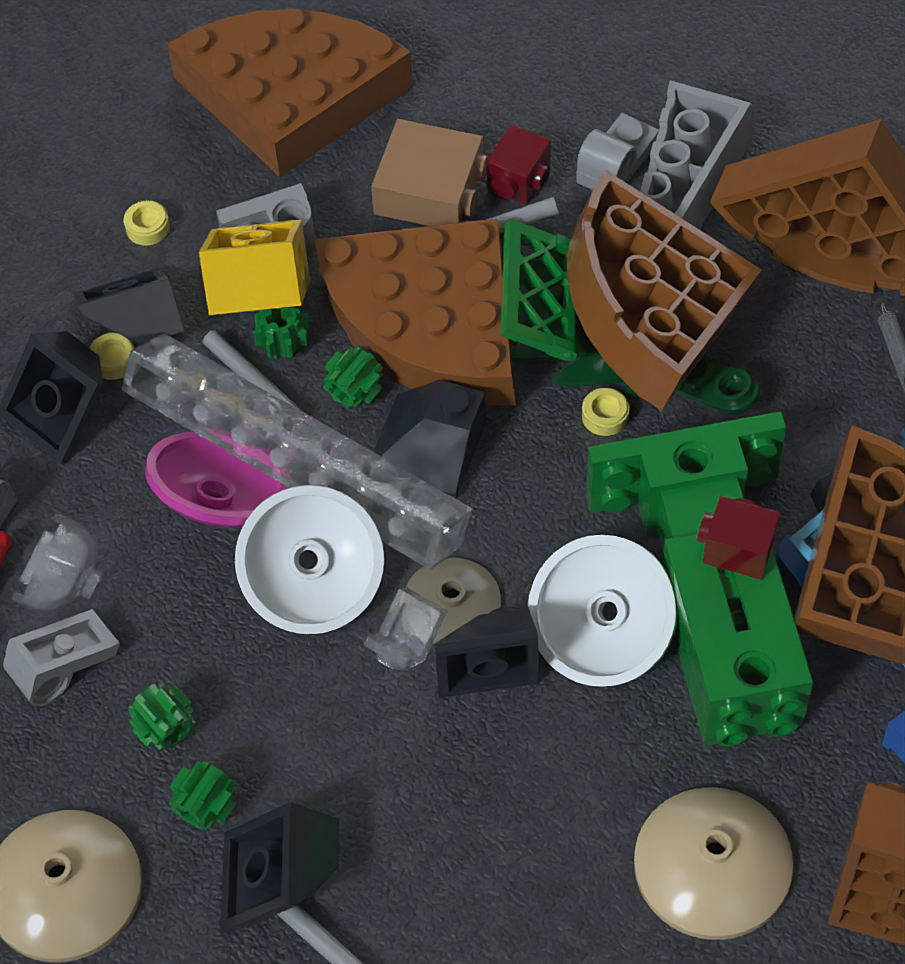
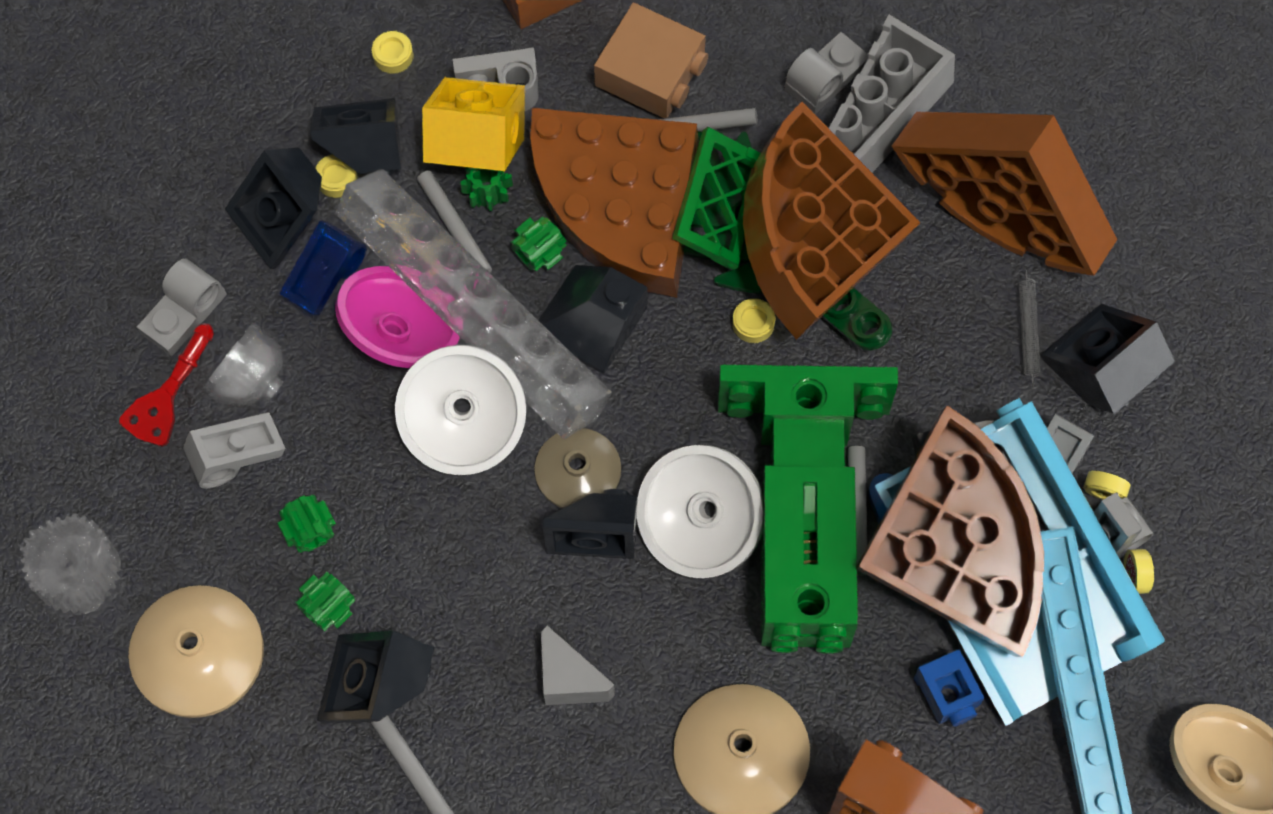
camera: 10 degrees right, 10 degrees up
(120, 440) = (323, 262): none -> clear blue plate
(407, 630) = (530, 491): clear bracket -> none
(500, 817) = (569, 676): none -> light grey slope
(519, 165) = (734, 66): dark red brick -> none
(739, 536) = (826, 480): dark red brick -> none

